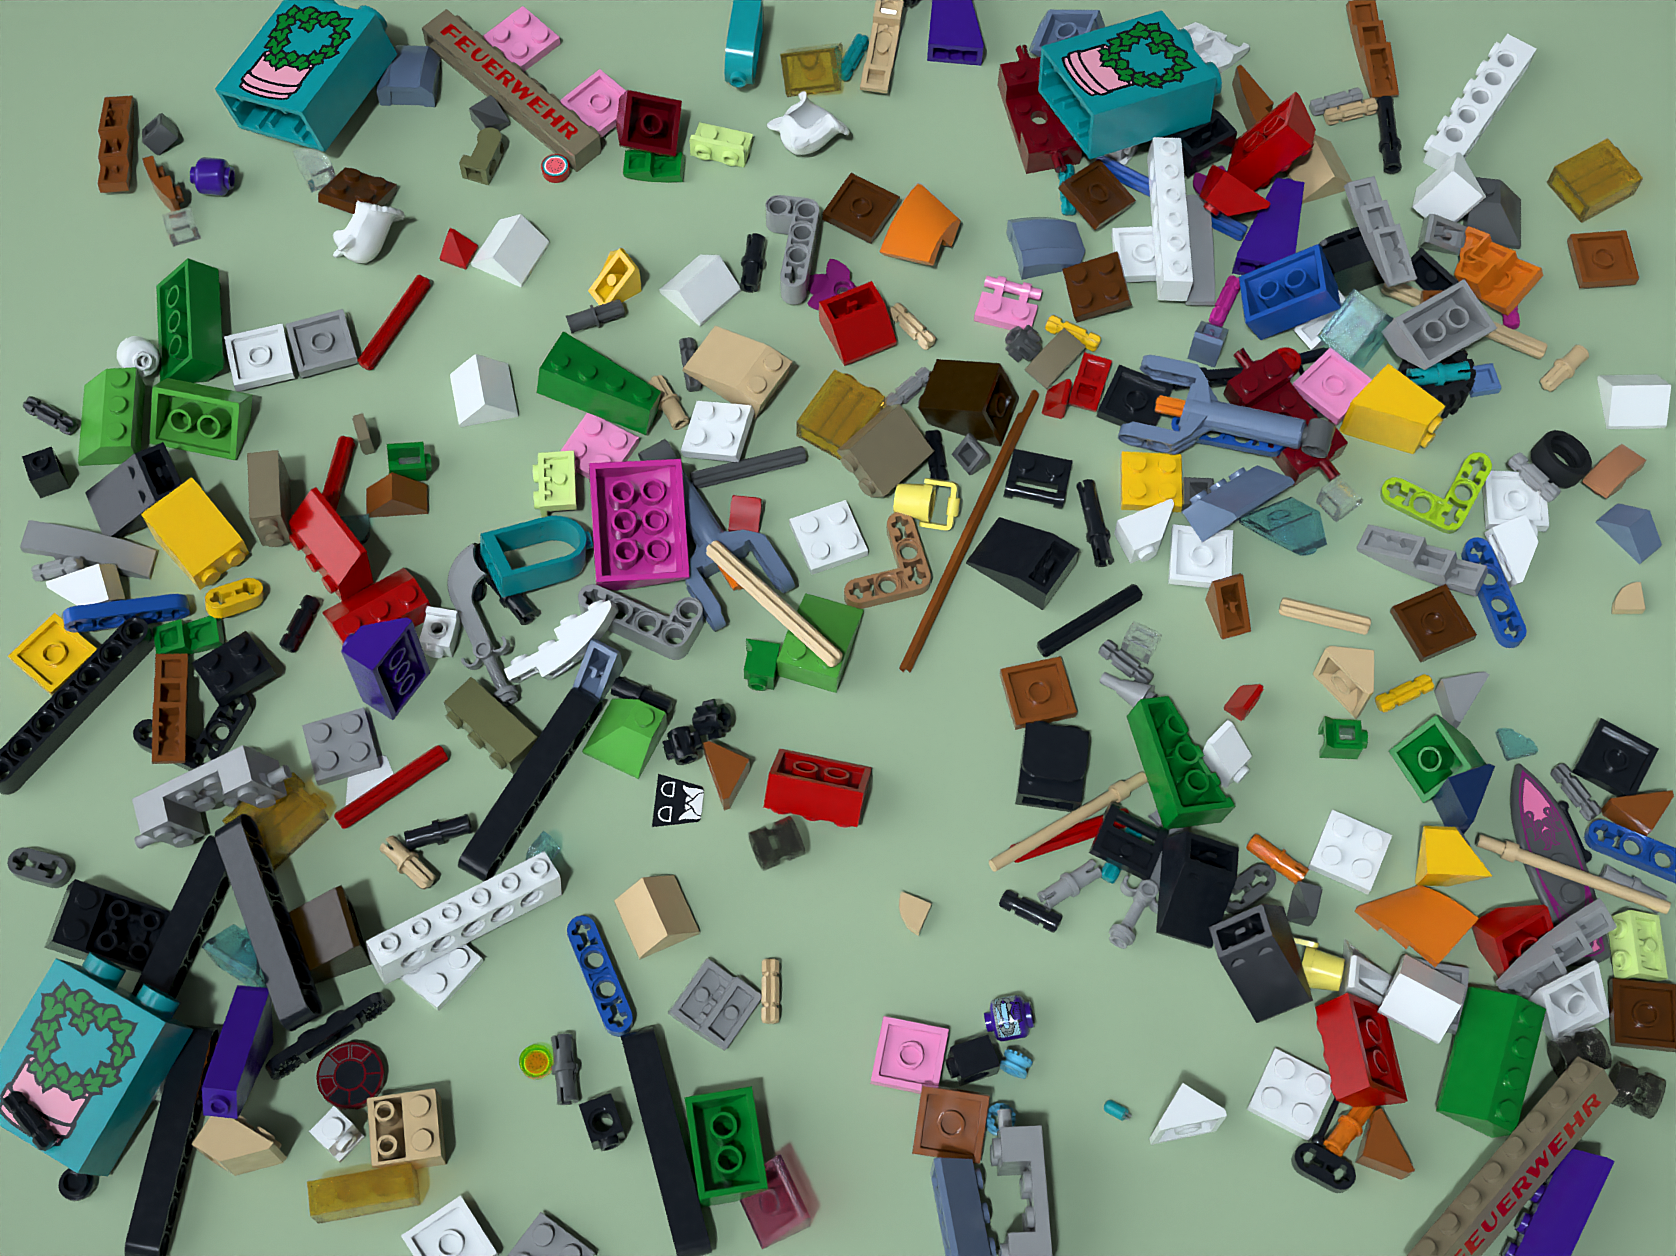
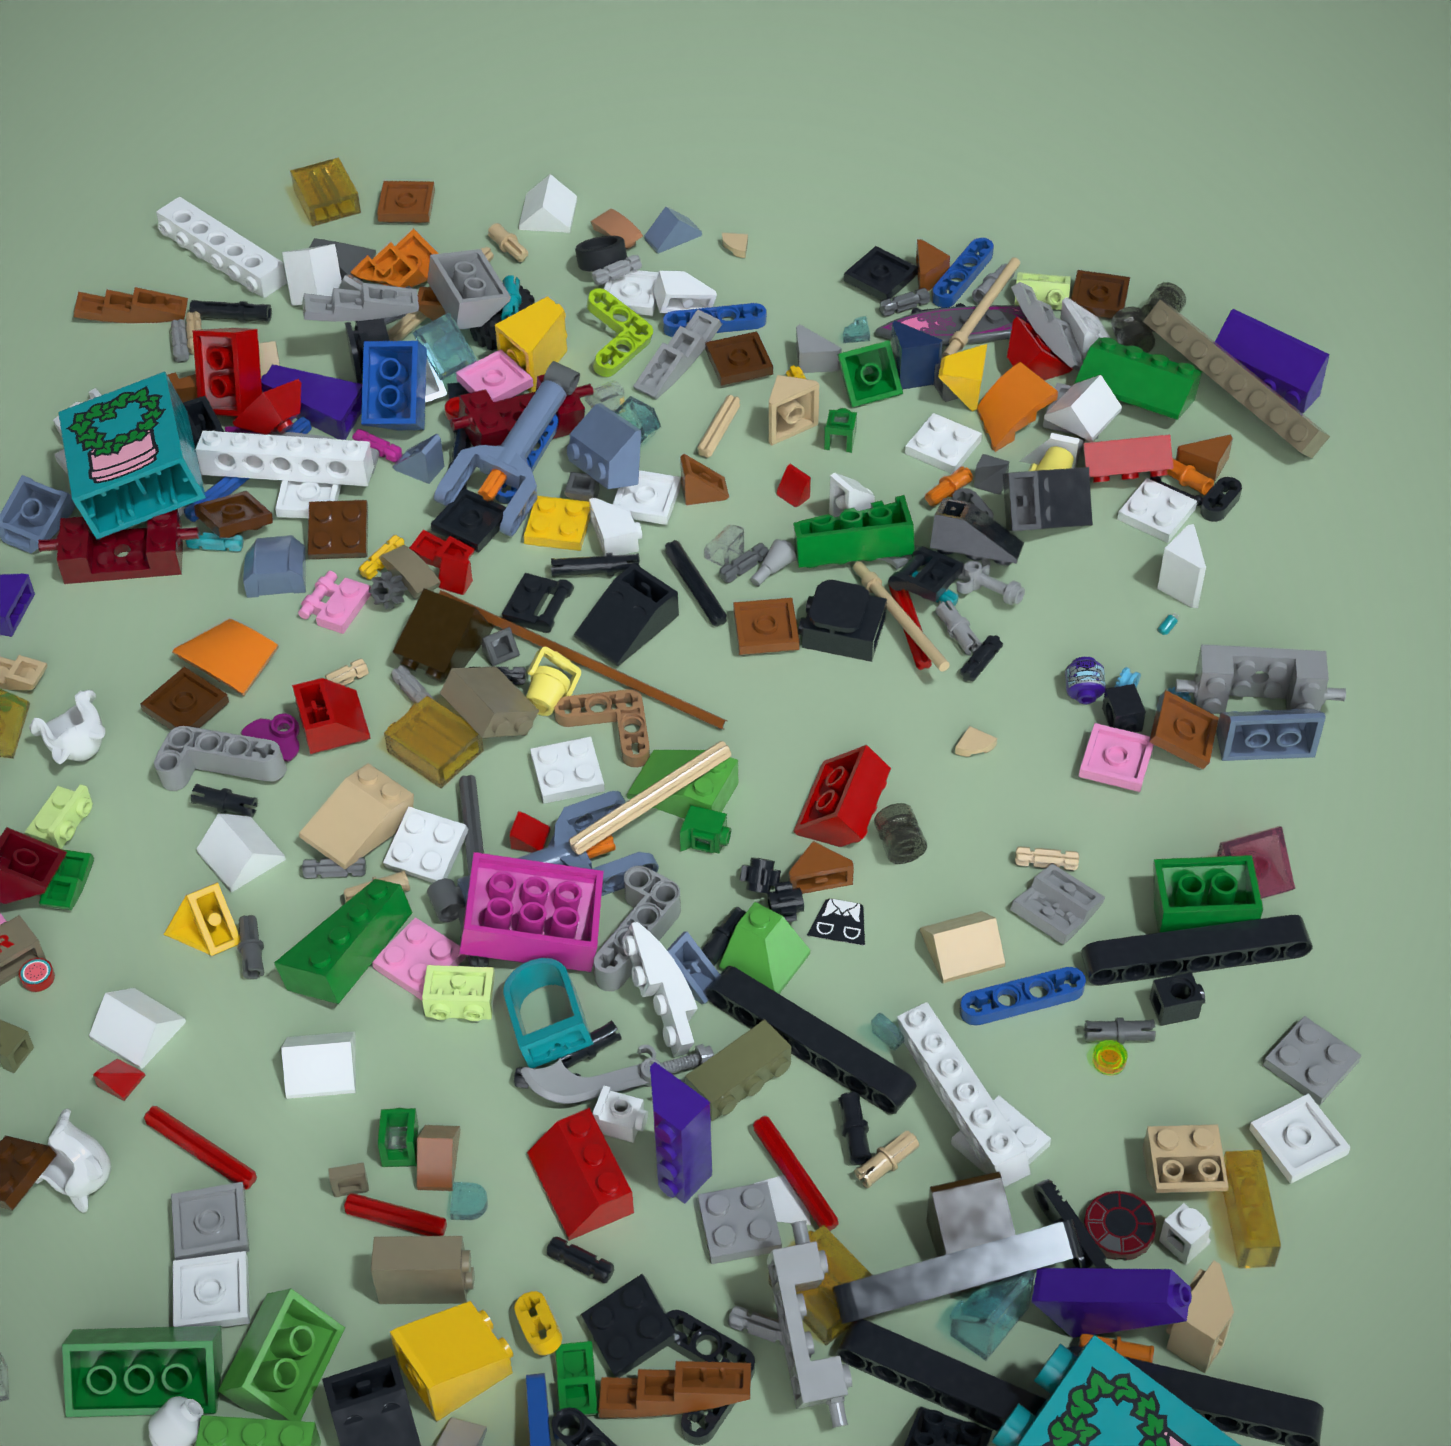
camera: 80 degrees left, 15 degrees down
(330, 546) = (498, 1205): slope -> none

